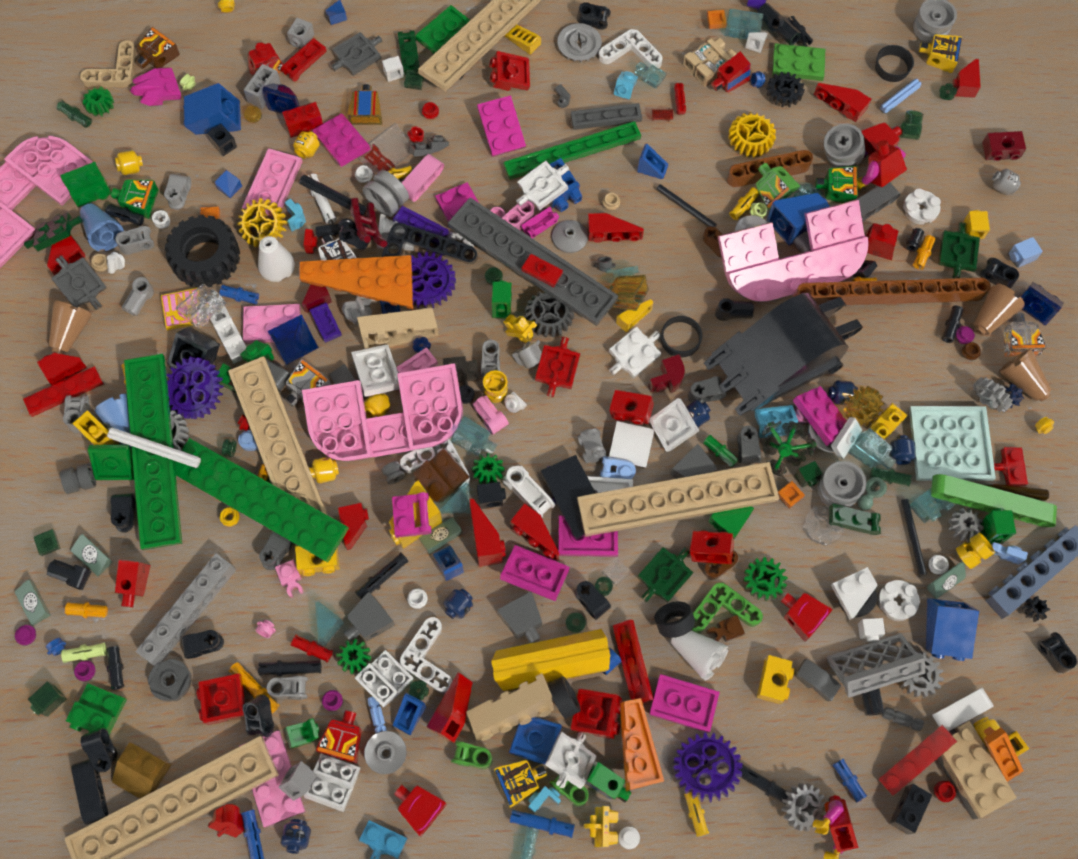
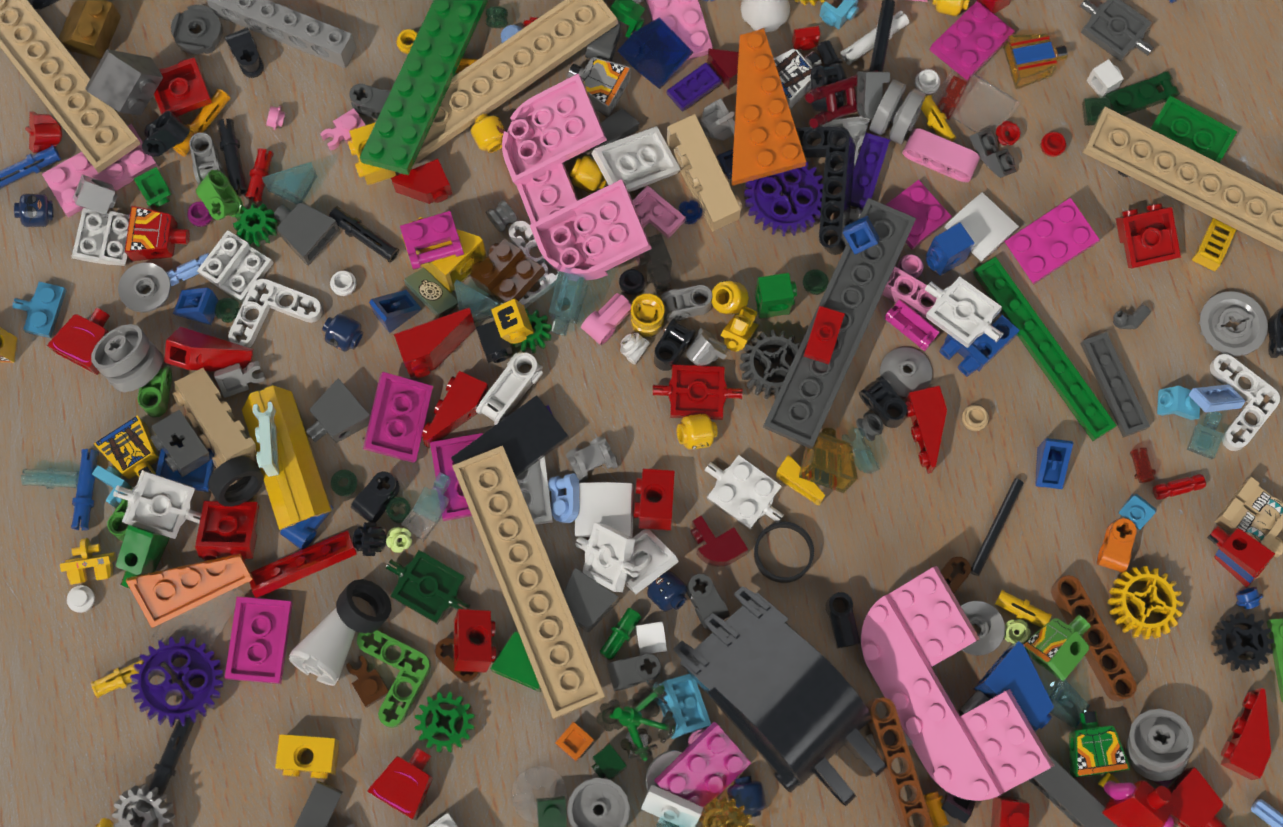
camera: 80 degrees right, 5 degrees up
(208, 737) = (125, 81): none -> flat silver slope
(323, 681) = (218, 194): none -> bright green piece
(368, 204) = (870, 91): none -> dark grey leg
(446, 769) = (127, 358): none -> light grey wheel
(475, 231) = (861, 235): none -> blue slope
(477, 689) = (235, 379): none -> light grey plate
(479, 165) = (985, 225): none -> white slope
(484, 473) = (512, 321): none -> yellow brick
(494, 185) = (949, 249): none -> blue brick
(501, 330) = (729, 297): none -> yellow head
(517, 373) = (674, 341): none -> black piece
(531, 728) = (177, 429): none -> dark grey brick
(535, 665) = (267, 437): none -> light aqua plate
(587, 253) = (881, 398): none -> black piece
(587, 372) = (696, 431): none -> yellow head
(605, 557) = (432, 502): none -> clear light blue plate
(623, 609) = (369, 539): none -> black gear
(626, 589) = (394, 534): none -> yellowish green plate
(629, 61) = (1217, 398): none -> light blue plate
(670, 442) = (608, 556): none -> white plate
(694, 122) = (1137, 510): none -> dark azure bracket
(713, 141) = (1116, 550): none -> orange piece
(726, 432) = (651, 638): none -> white slope

